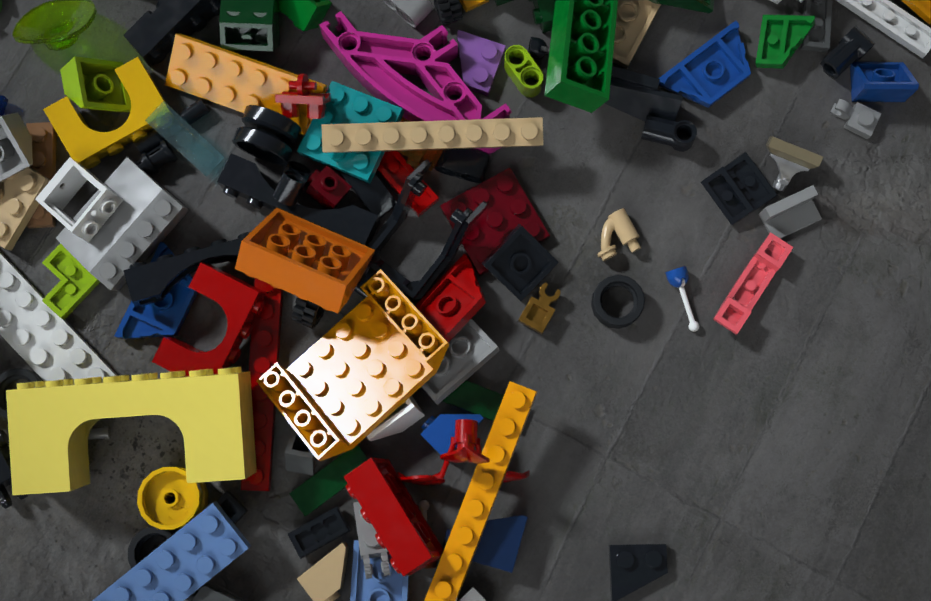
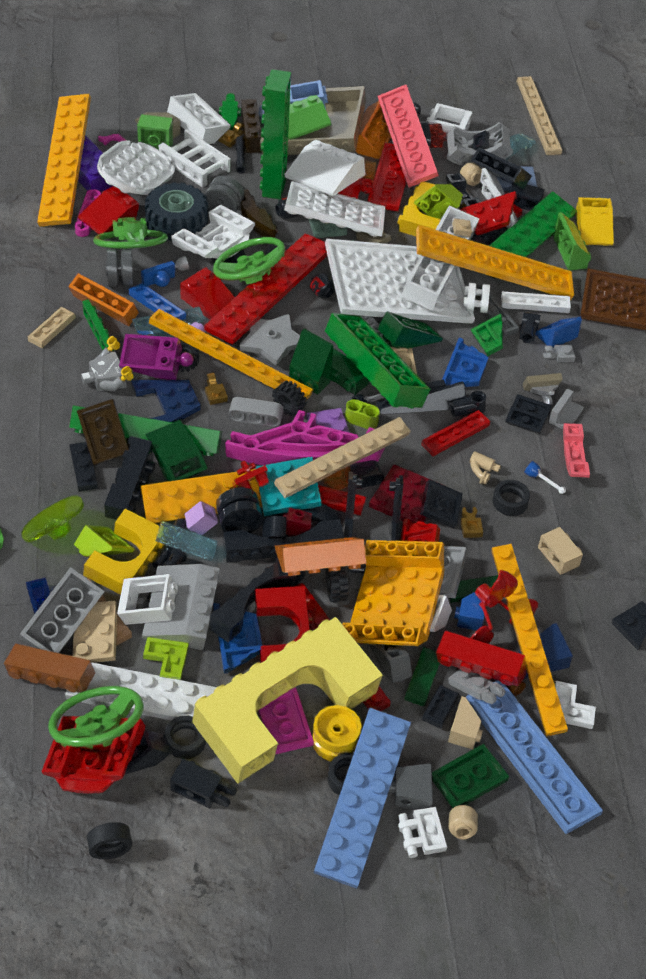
camera: 40 degrees left, 30 degrees down
(133, 448) = (287, 722): none -> dark pink plate
(222, 116) = (201, 518): none -> lavender brick
(619, 414) = (560, 550): none -> tan brick
(622, 165) = (455, 433): none -> red plate

